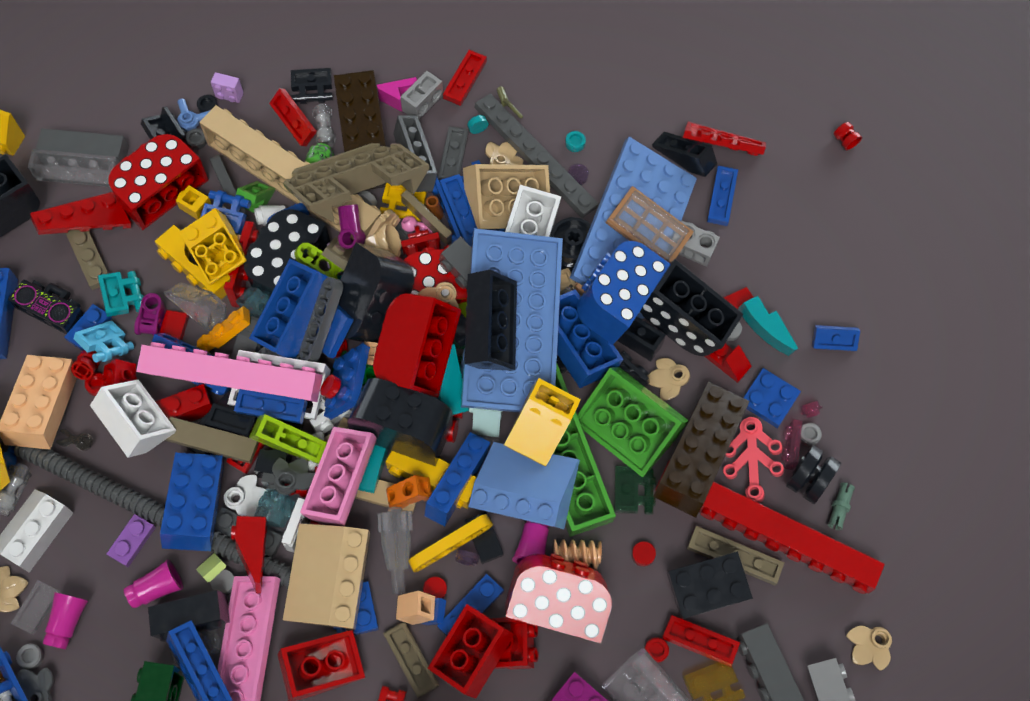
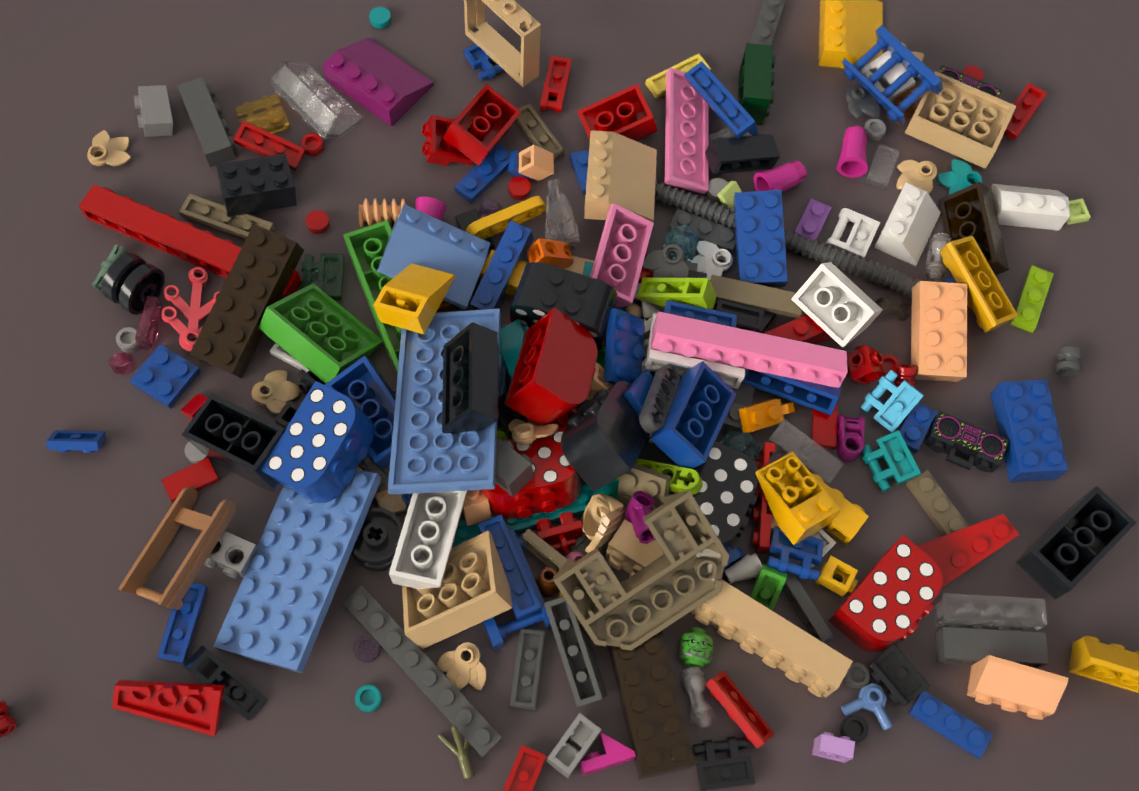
camera: 175 degrees right, 0 degrees up
(69, 116) = (1016, 687): none -> light nougat slope
(85, 518) = (860, 235): none -> white plate
(129, 102) = (950, 724): none -> blue plate
(250, 544) = (697, 203): red slope -> none
(290, 534) = (659, 225): white plate -> none
(330, 386) = (640, 336): red tile -> none
(477, 124) = (497, 711): teal tile -> none
(559, 596) = (402, 161): brick -> none
(648, 223) = (281, 546): clear piece -> none
(707, 251) = (179, 514): none -> medium nougat piece
(768, 326) = (154, 448): teal slope -> none

